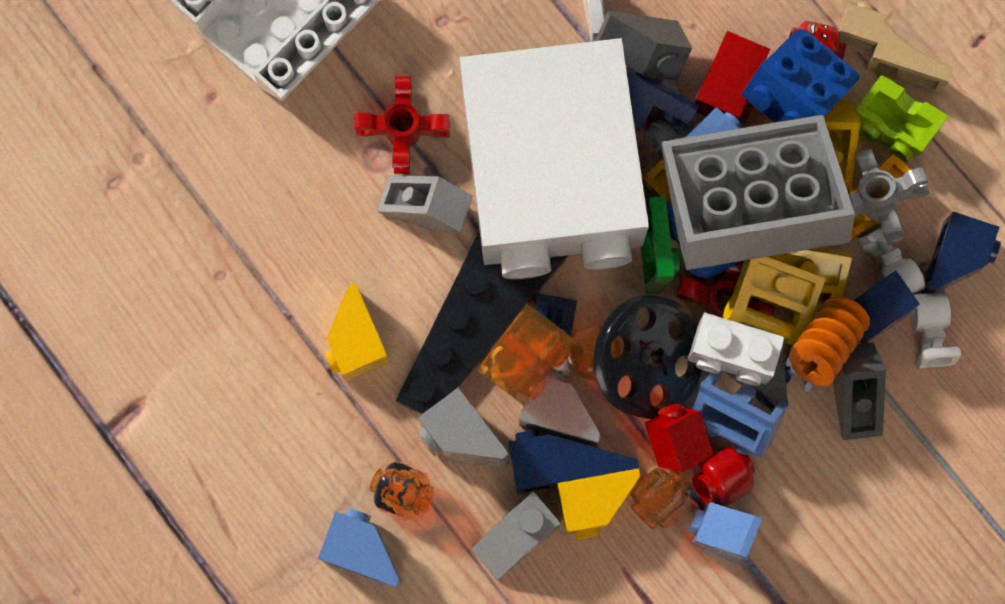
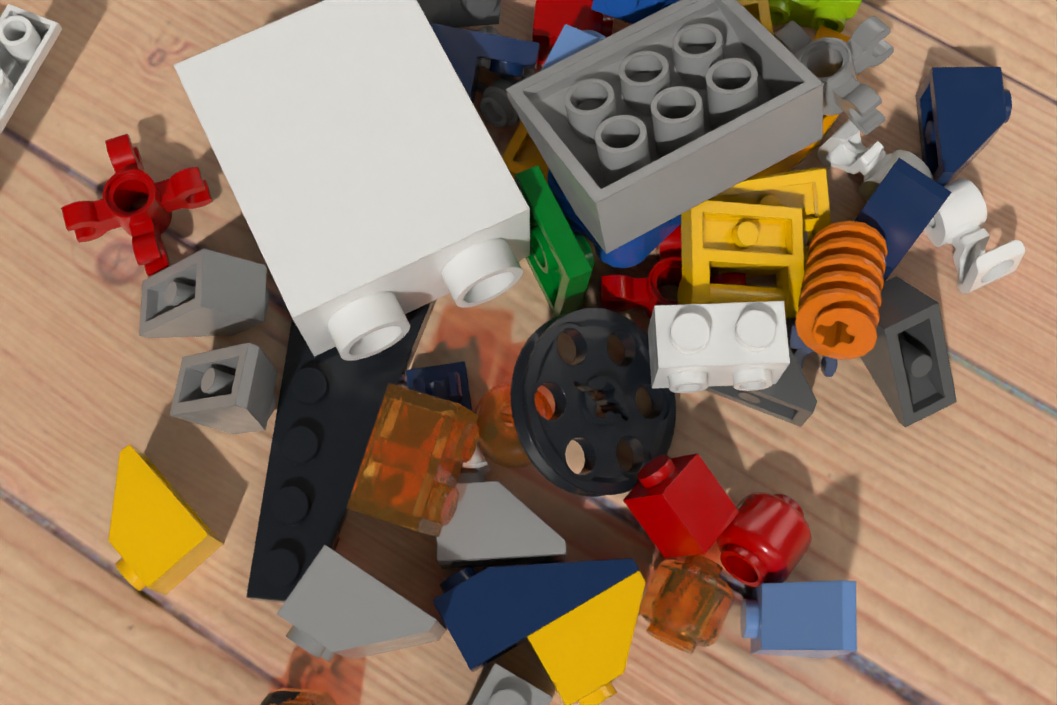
camera: 20 degrees left, 5 degrees down
(423, 268) = (226, 389): none -> light grey slope
(736, 418) = (751, 446): medium blue window -> none

